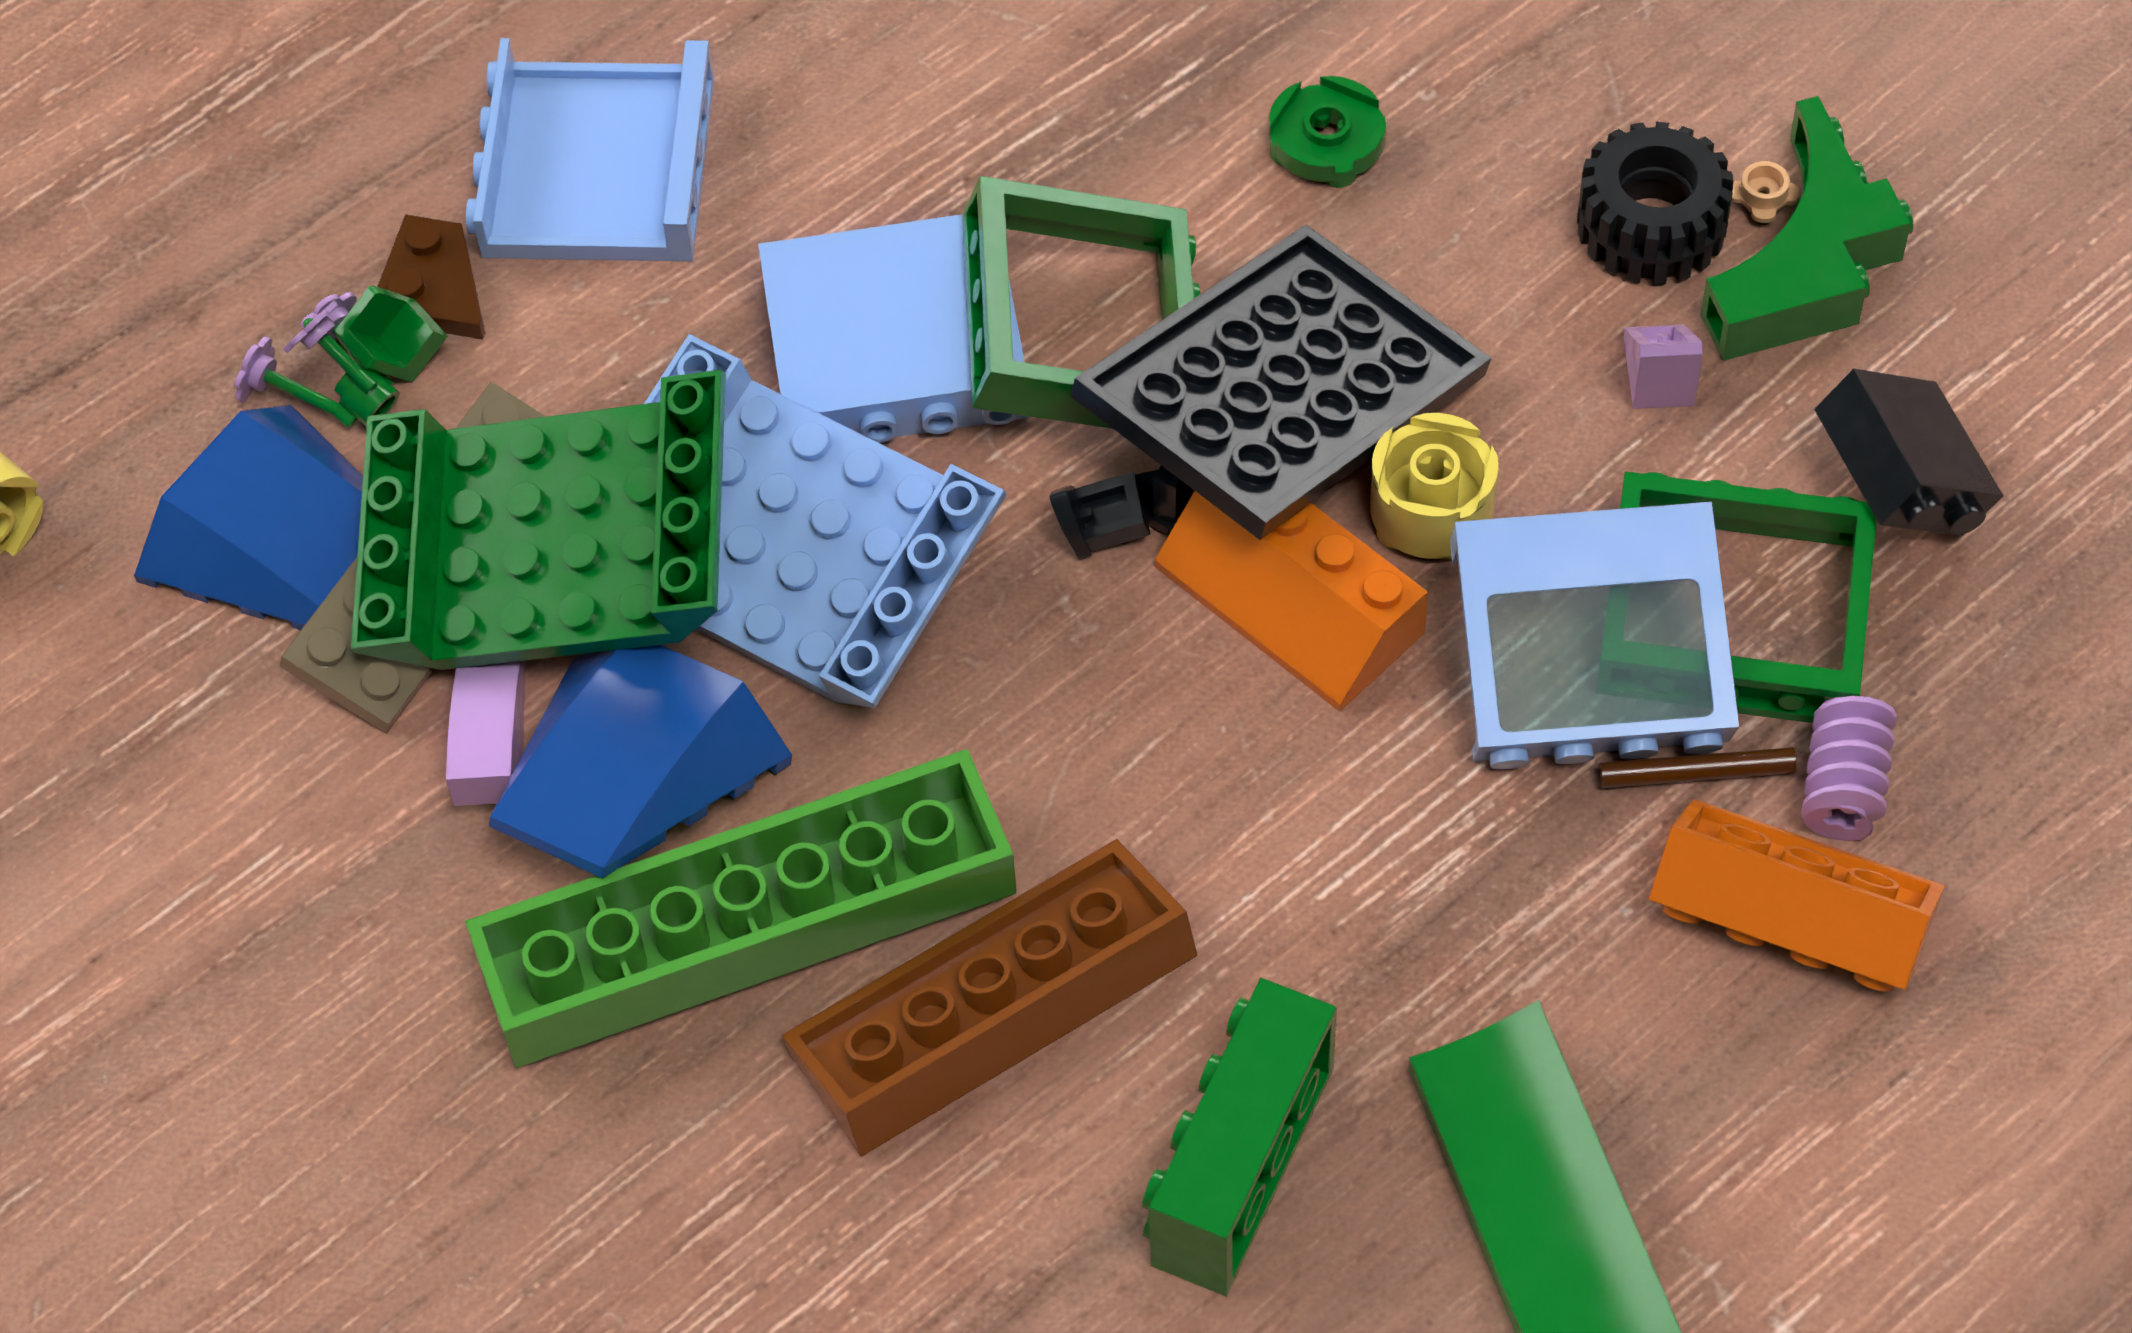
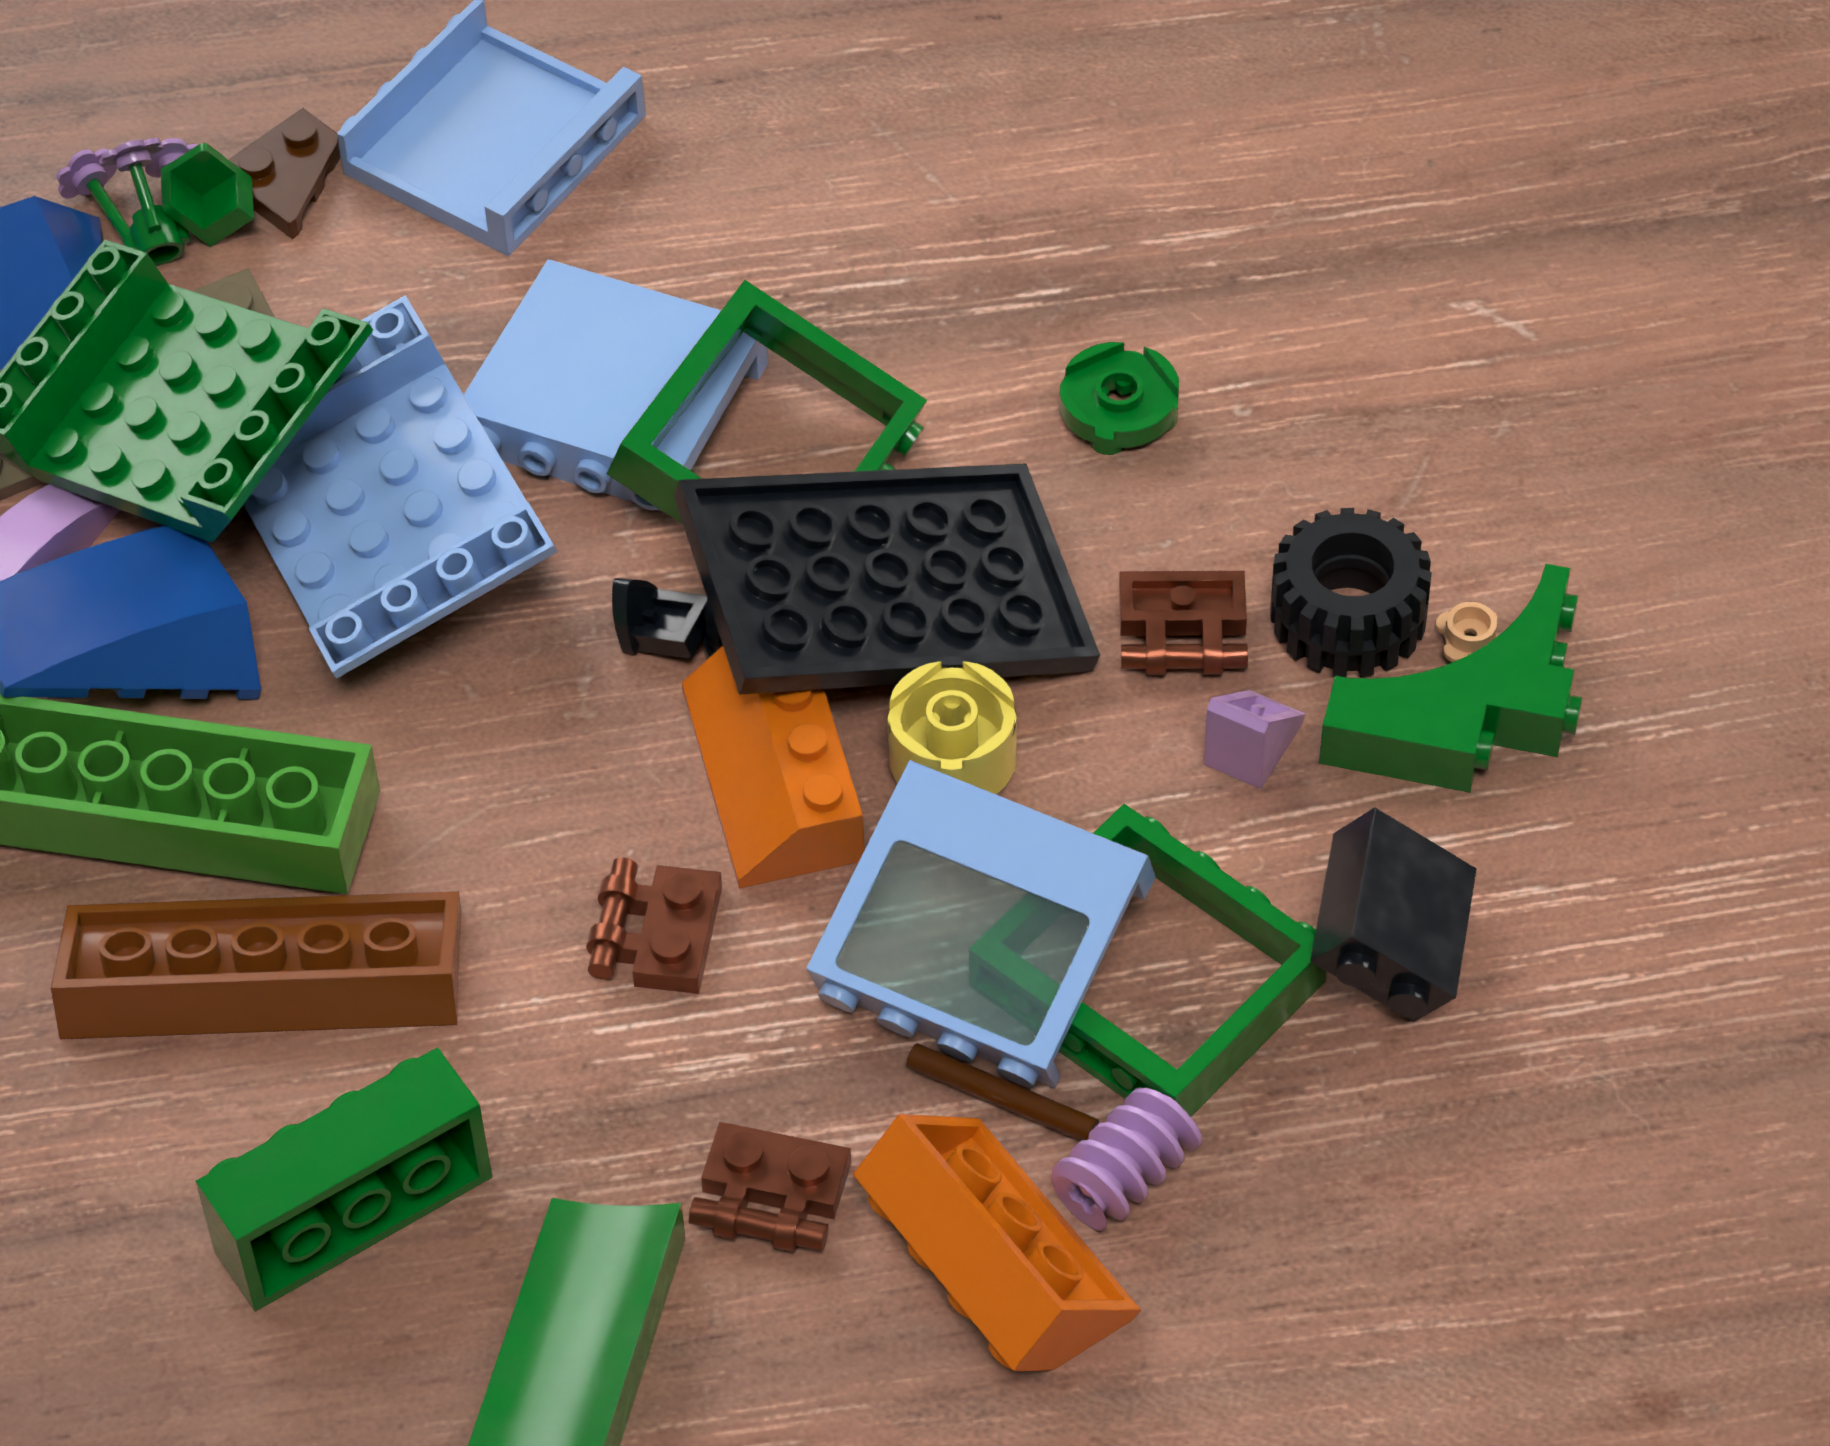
camera: 30 degrees right, 5 degrees down
(1318, 768) = (675, 930): none -> copper plate
(1523, 280) = (1178, 605): none -> copper plate
(1572, 933) = (773, 1172): none -> copper plate

